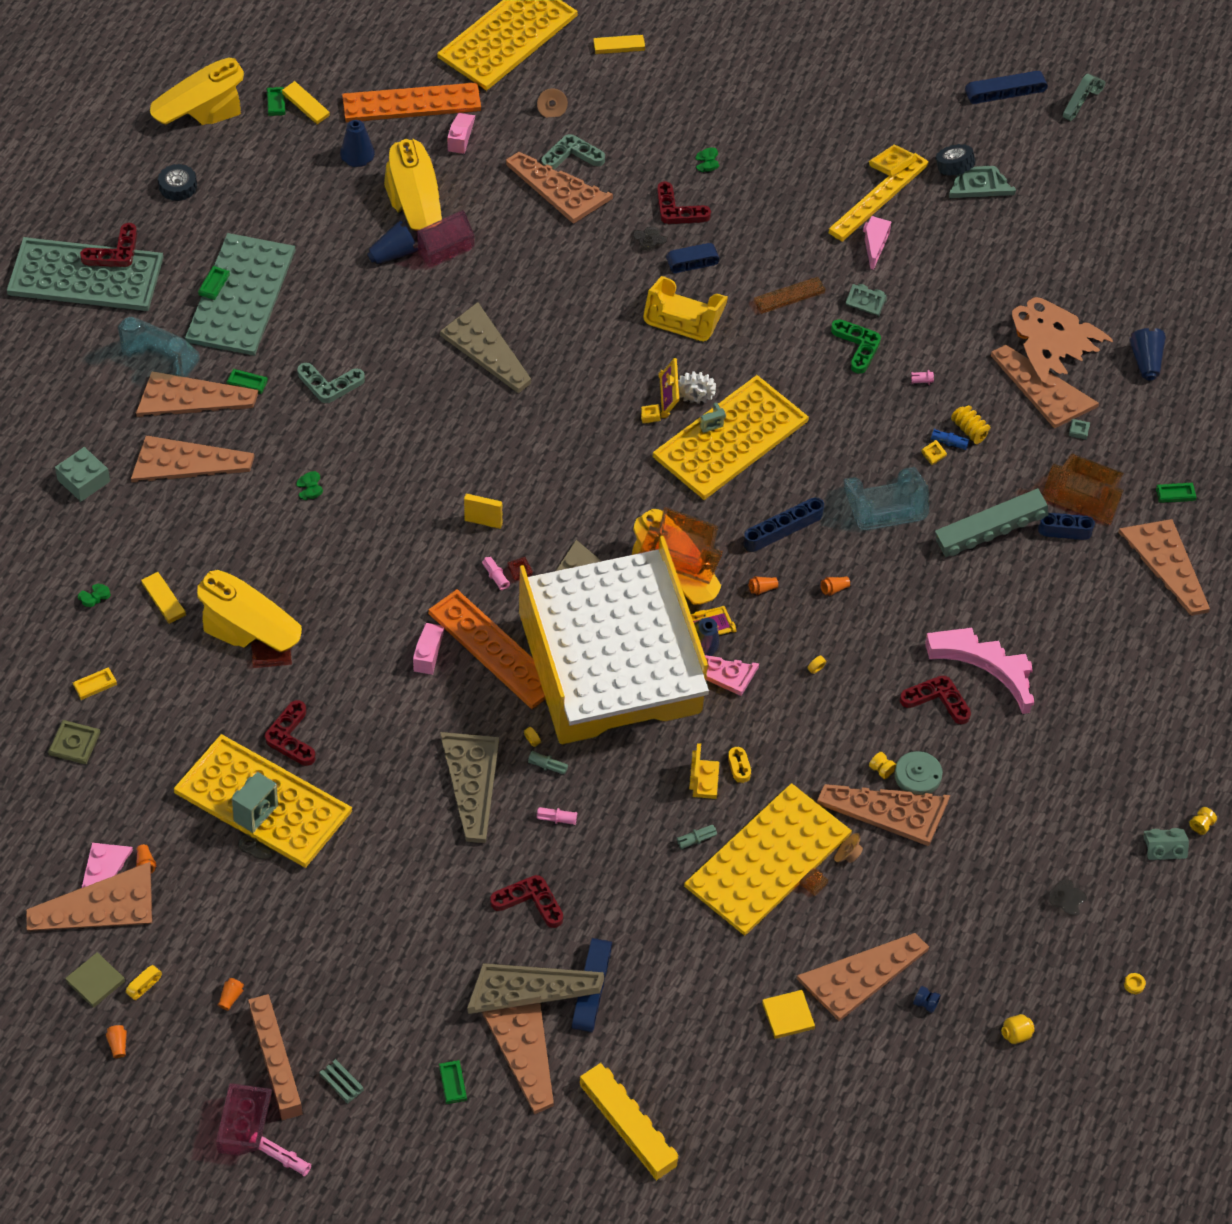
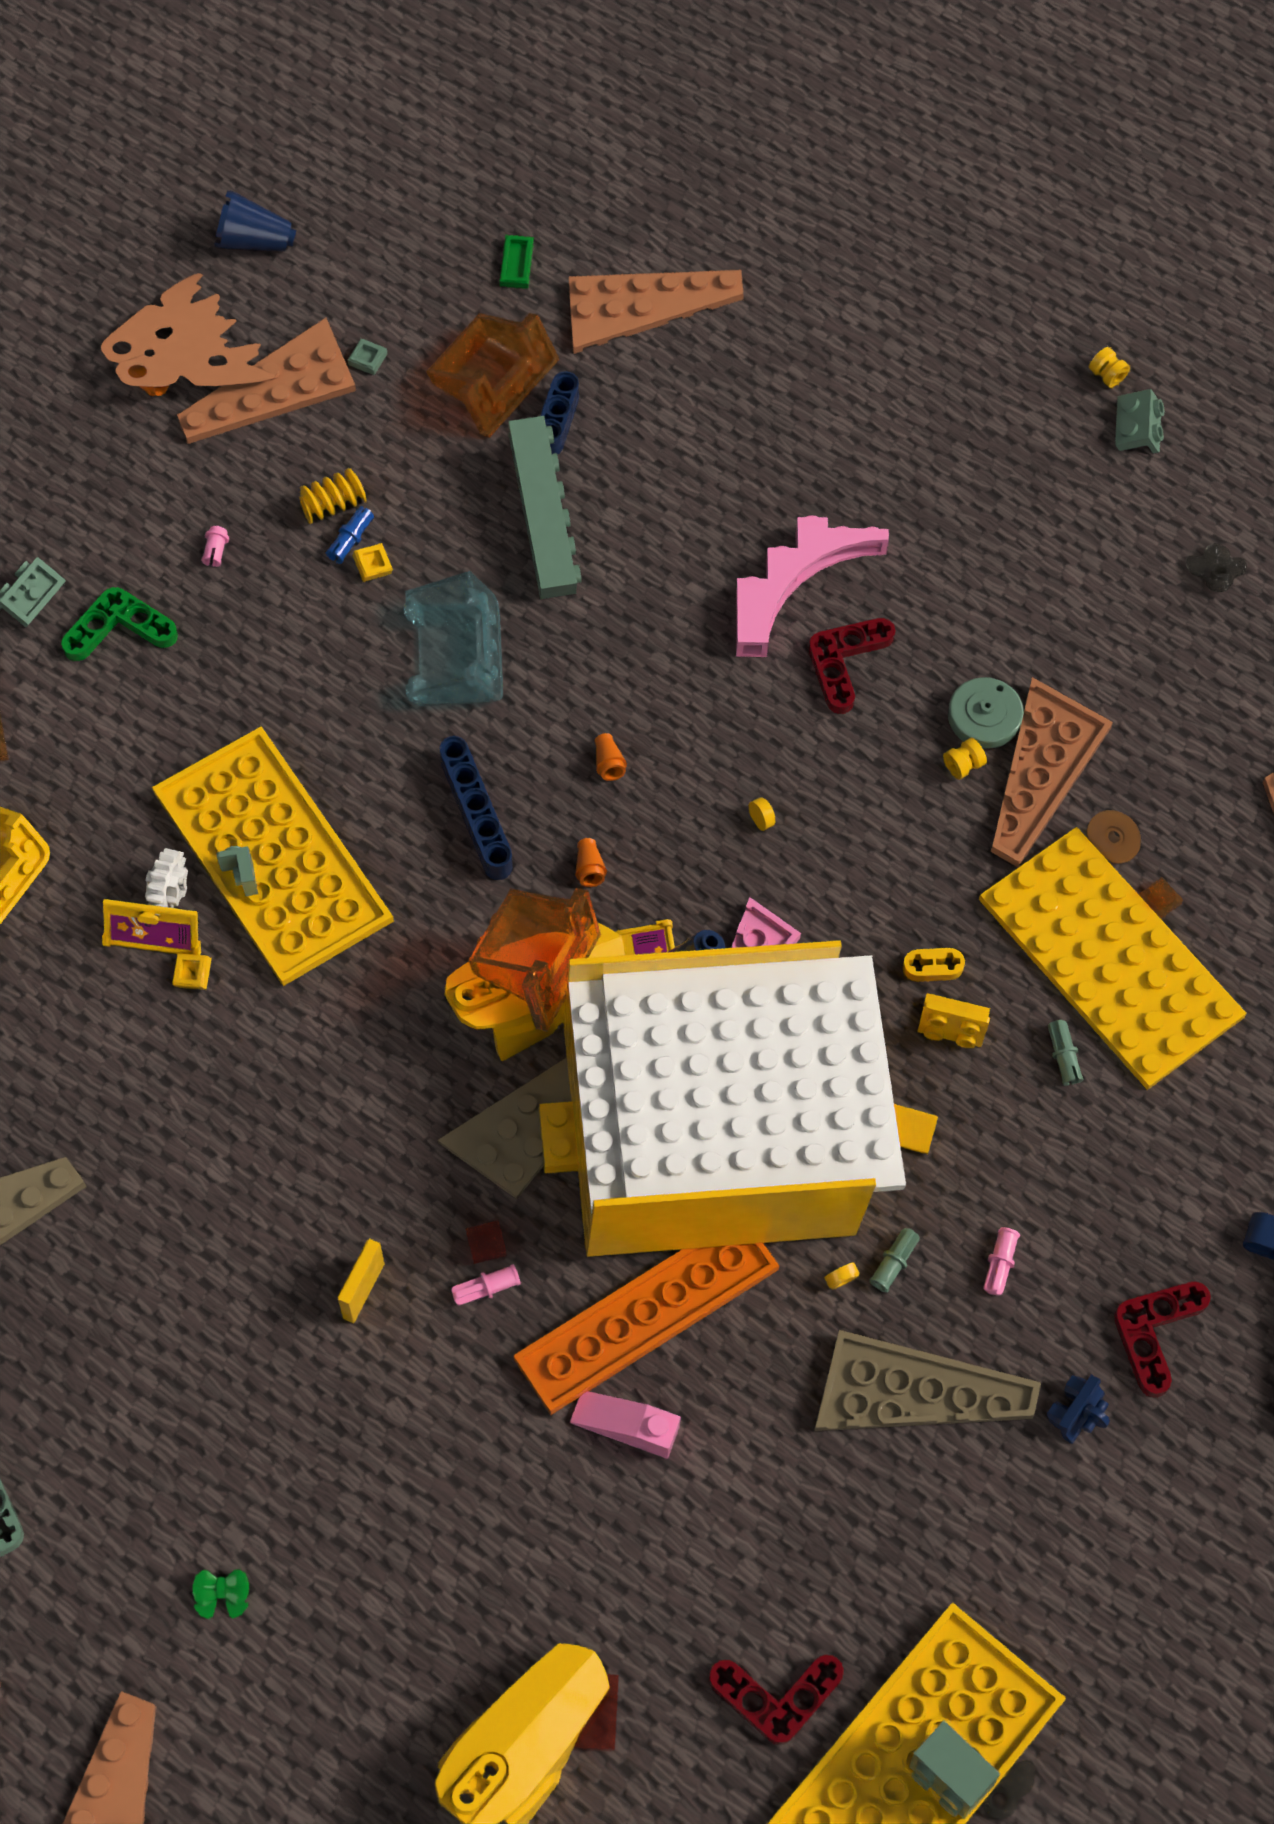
camera: 80 degrees left, 10 degrees up
(473, 861) = (1085, 1410): none -> dark blue hips
(630, 757) = (915, 1128): none -> yellow slope

